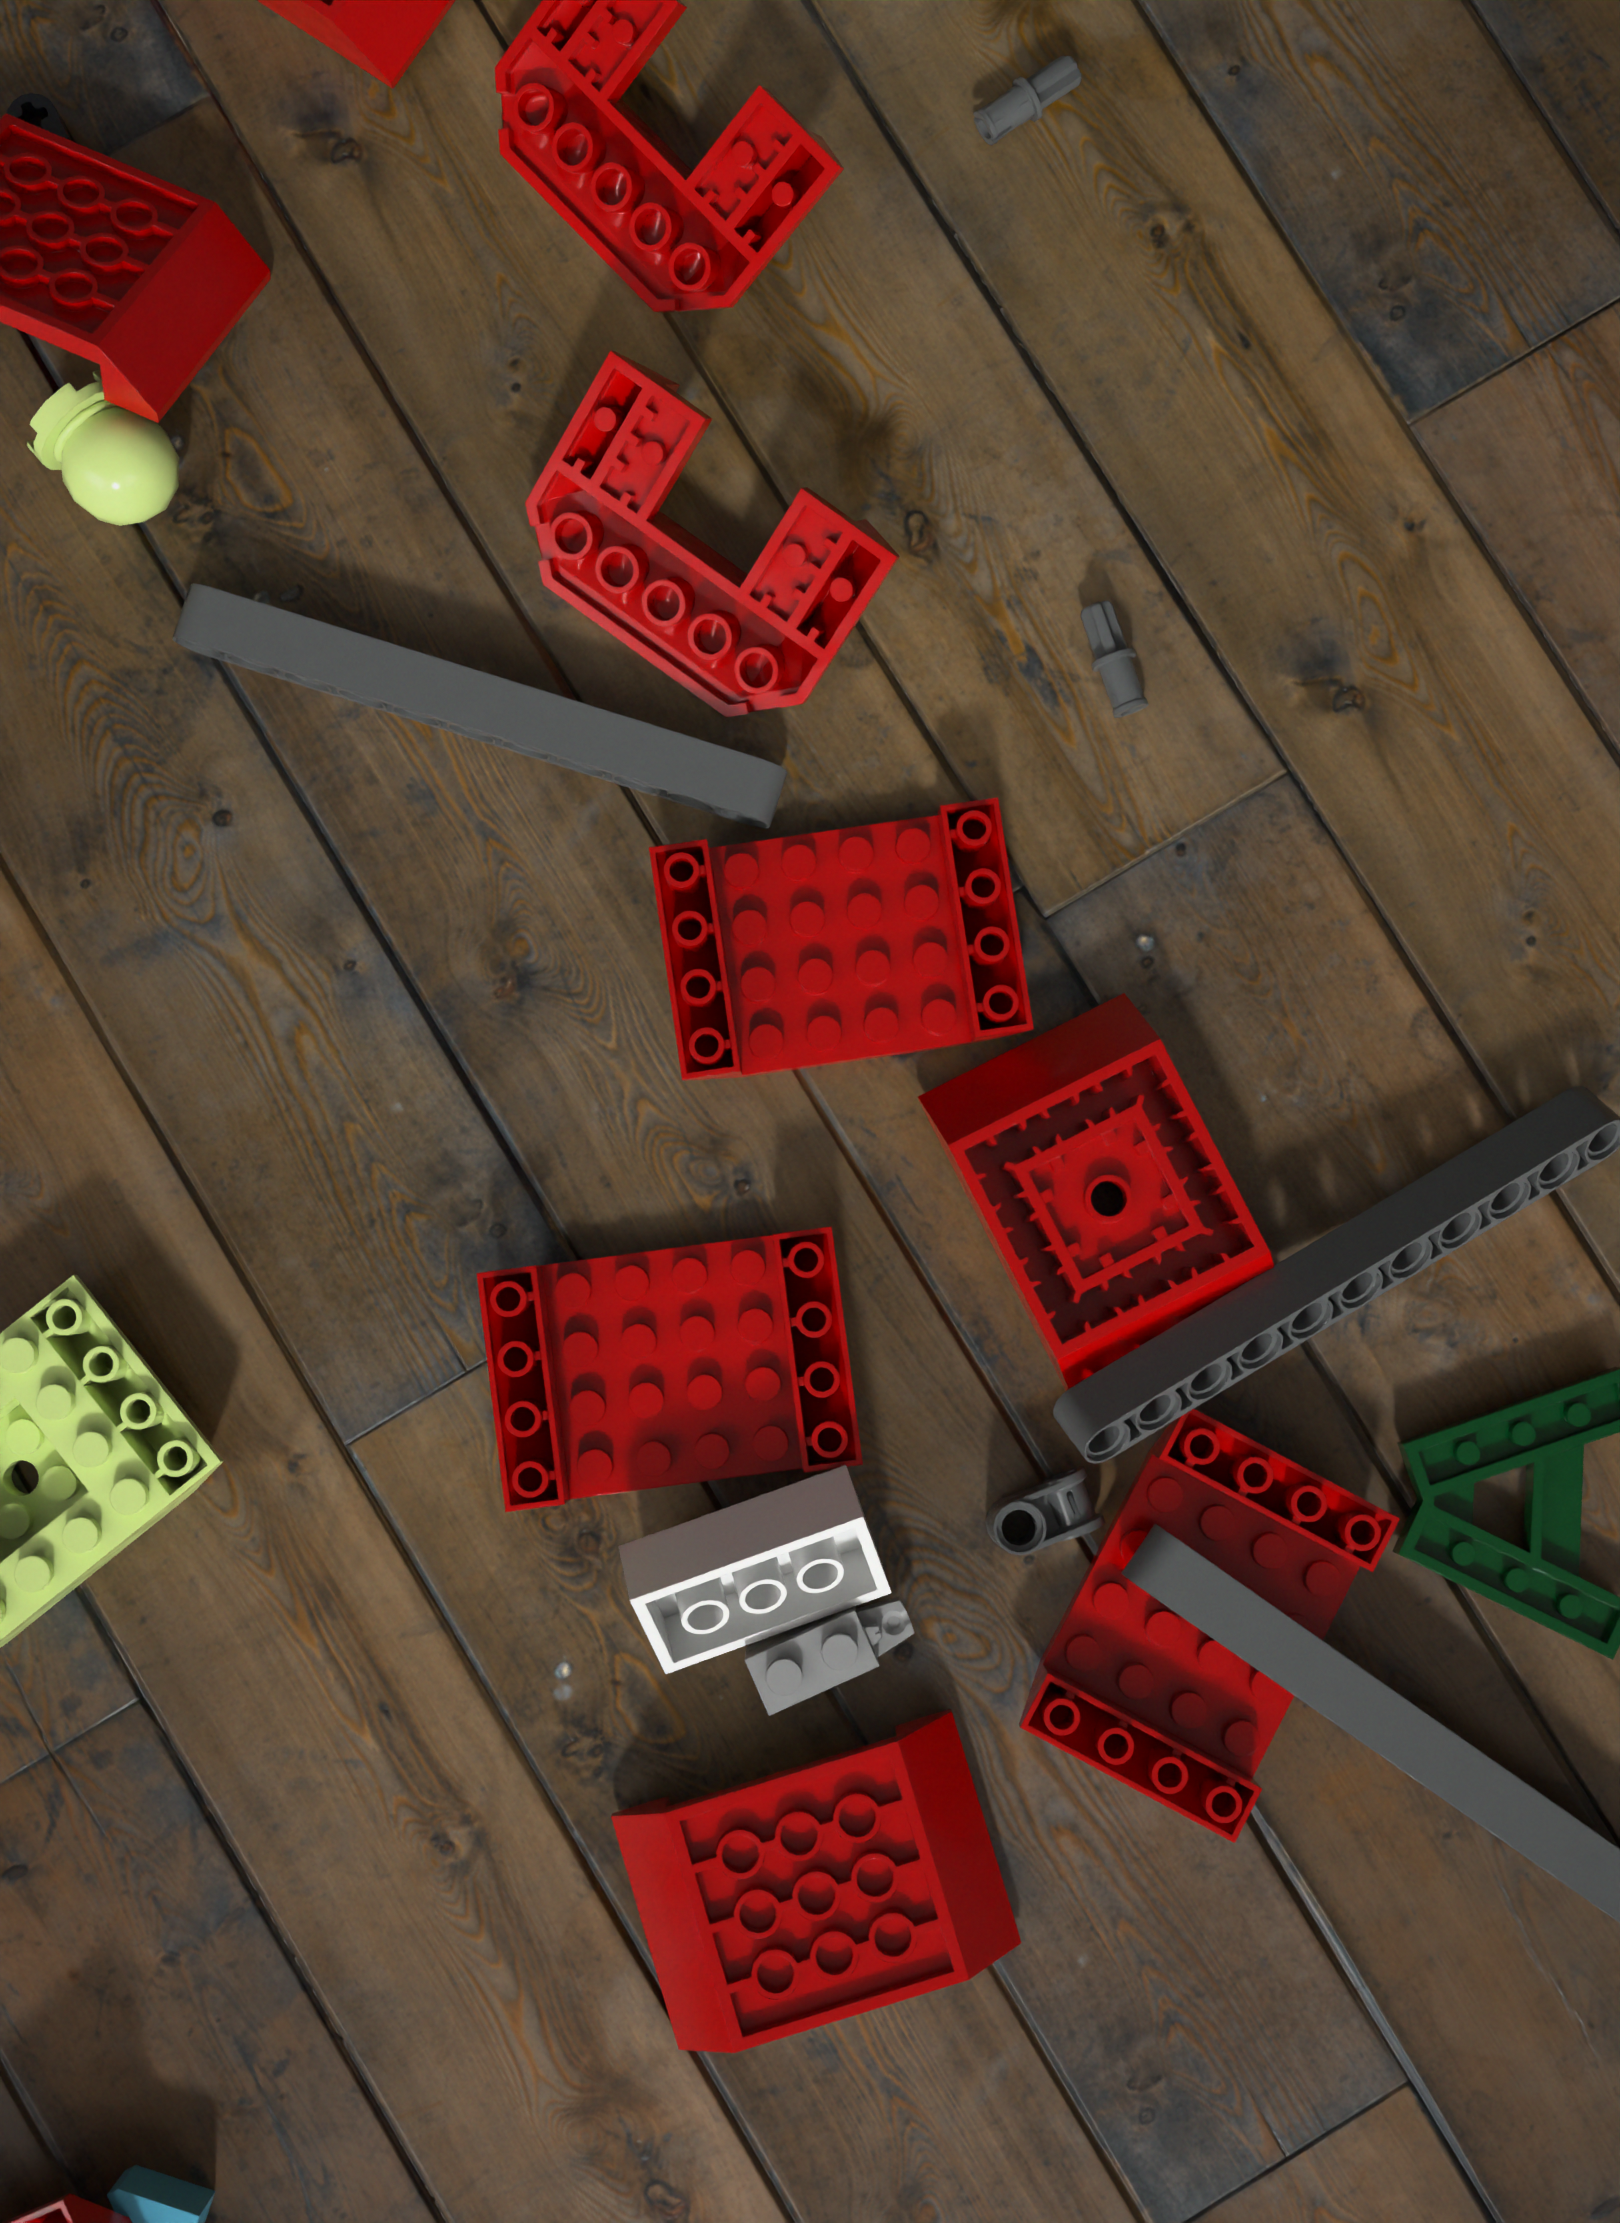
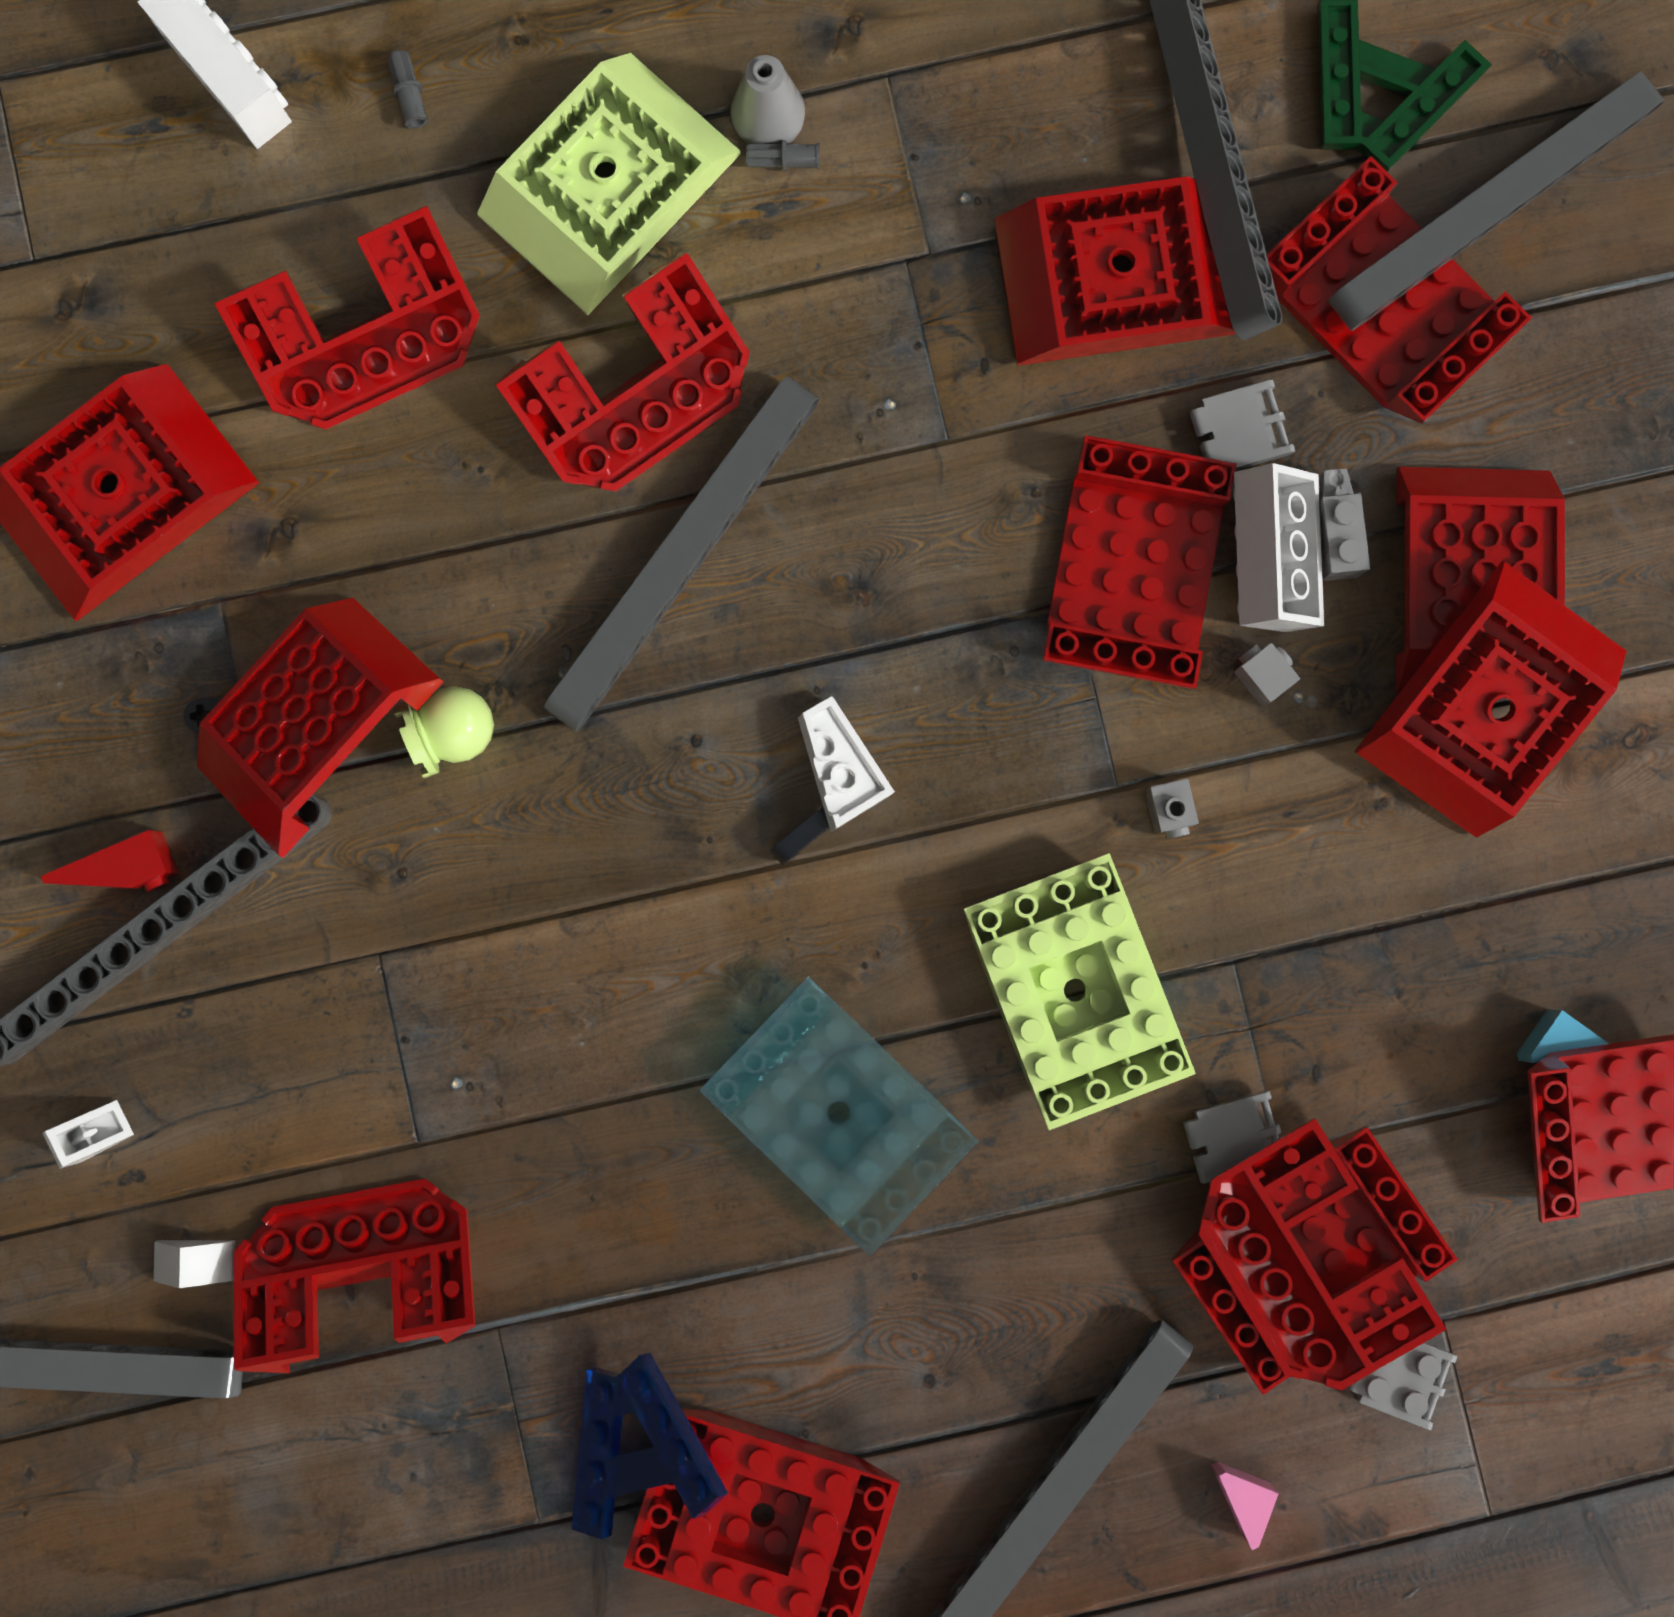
camera: 70 degrees left, 0 degrees up
(124, 1013) = (801, 837): none -> black beam
(239, 1034) = (841, 764): none -> white wing
(329, 1533) = (1171, 808): none -> light grey brick
(575, 1611) = (1266, 672): none -> light grey brick
(697, 1959) = (1441, 725): none -> red slope
(841, 943) = (908, 372): red slope -> none
(931, 1456) = (1241, 426): none -> light grey plate
(1036, 485) = (591, 228): none -> yellowish green slope
(1048, 1512) = (1297, 365): dark grey piece -> none
(1176, 611) = (767, 104): none -> light grey cone

